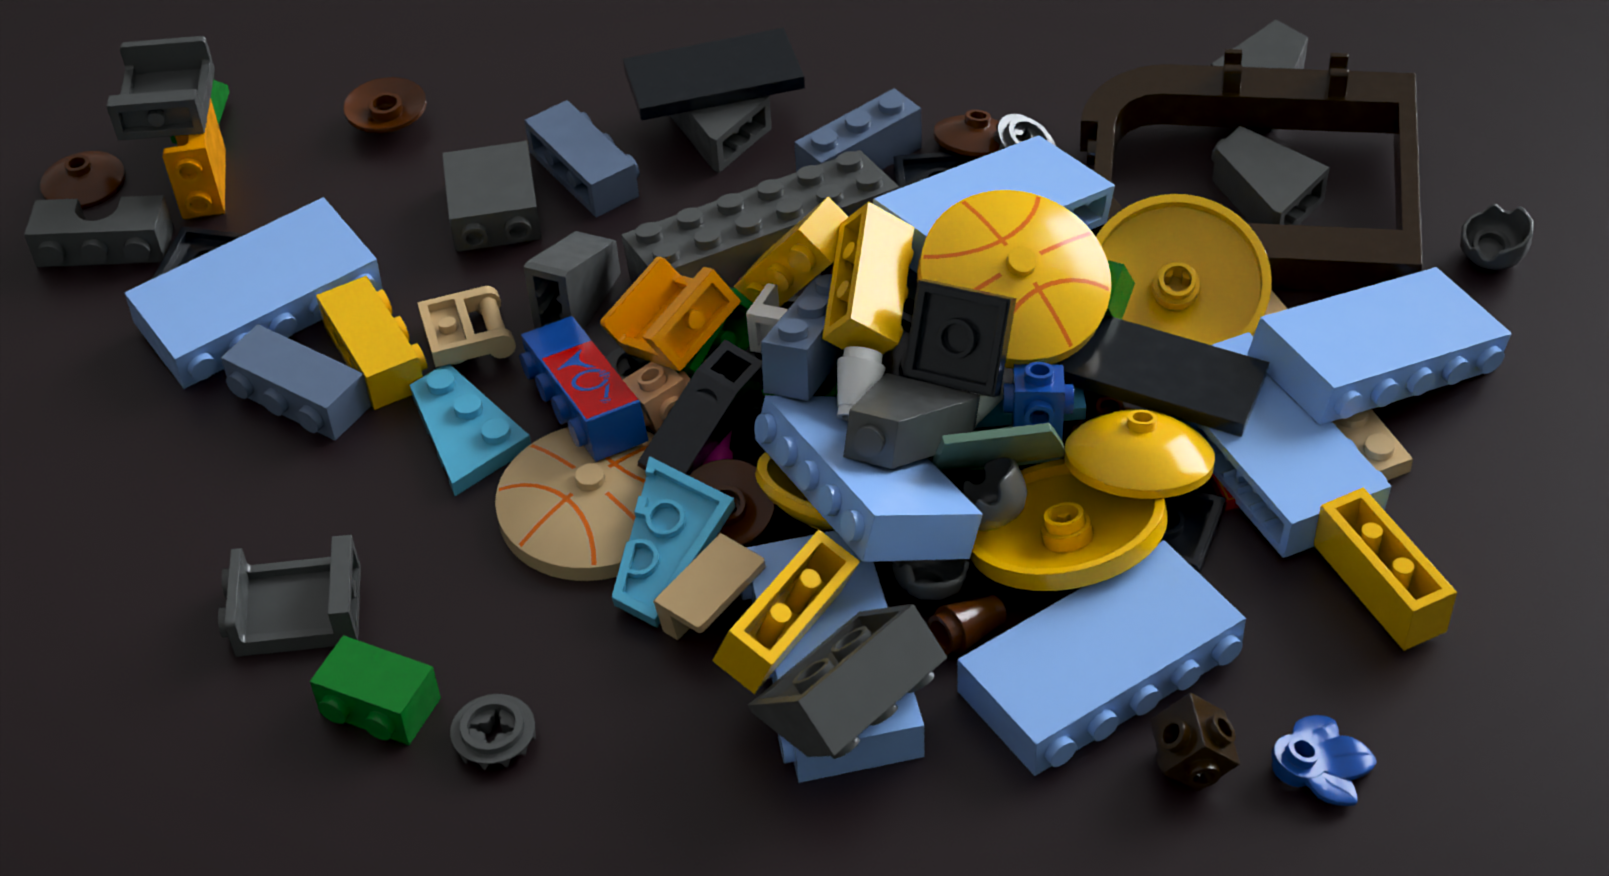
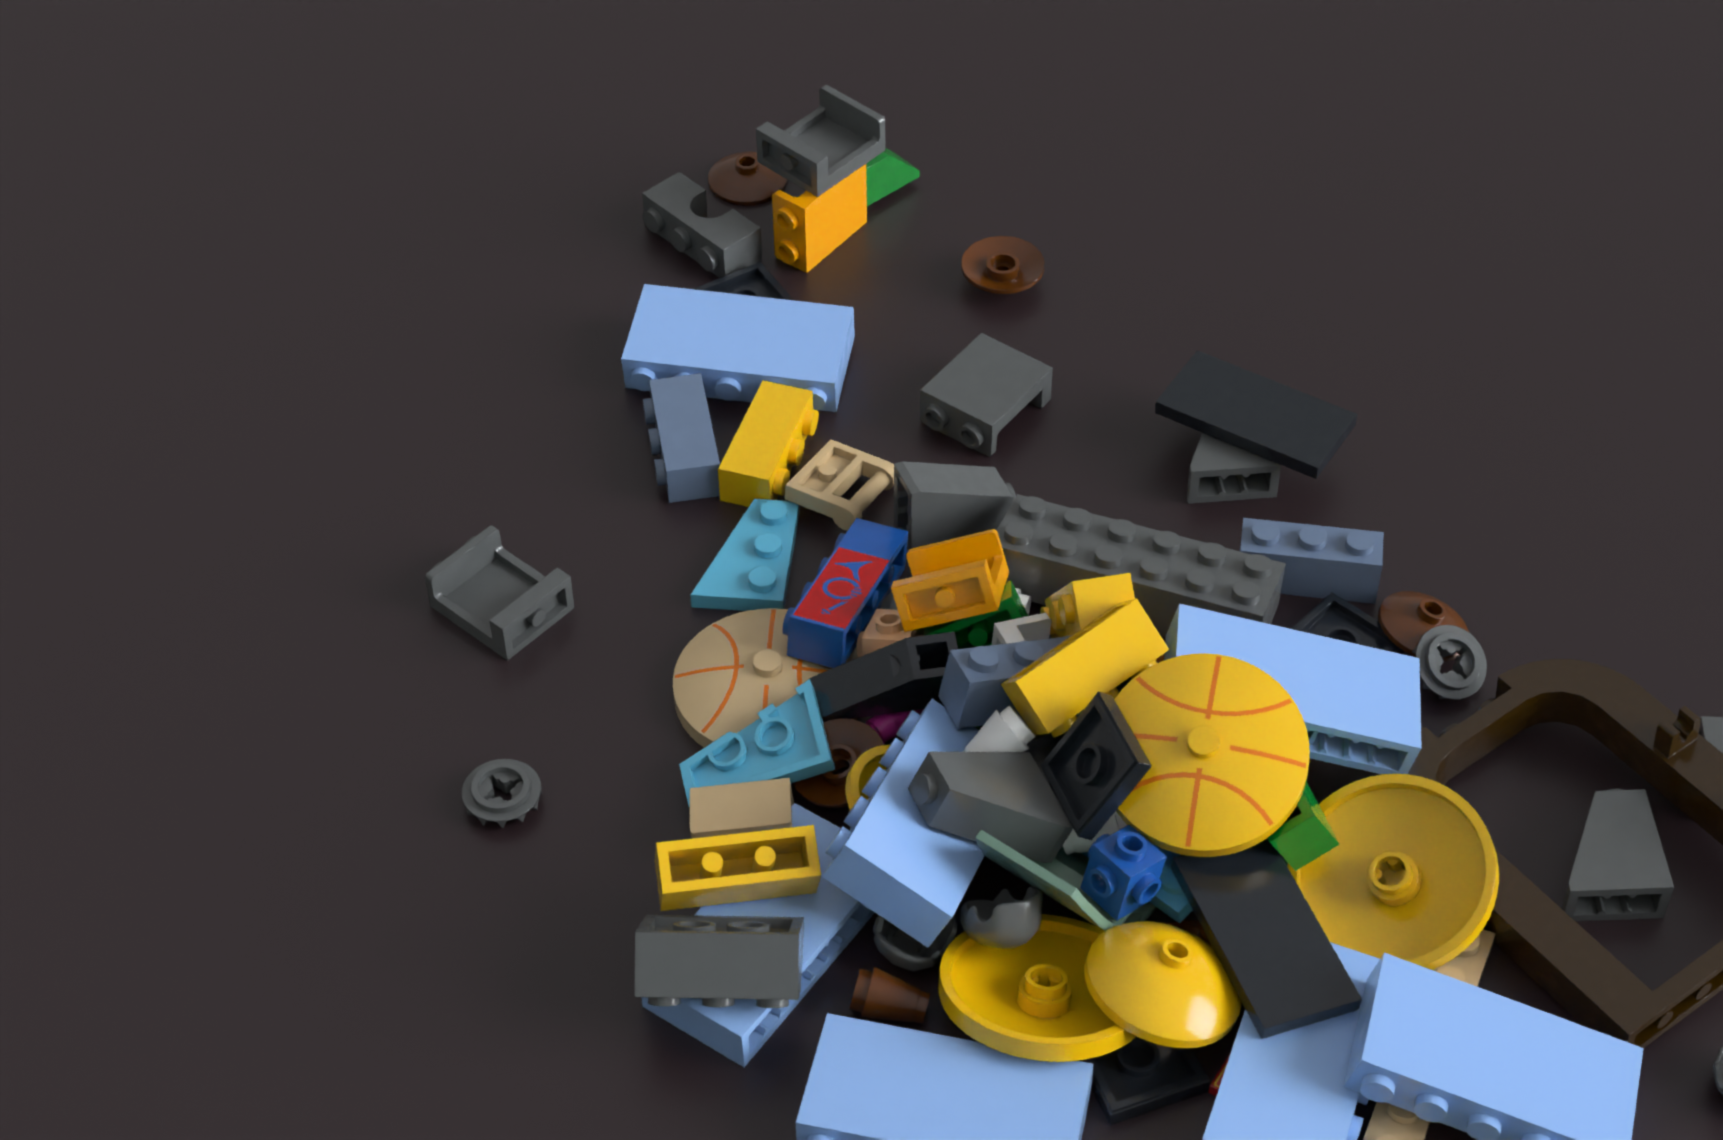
camera: 45 degrees right, 0 degrees up
(375, 690) = (465, 700): green brick -> none
(582, 158) = (1089, 413): sand blue brick -> none

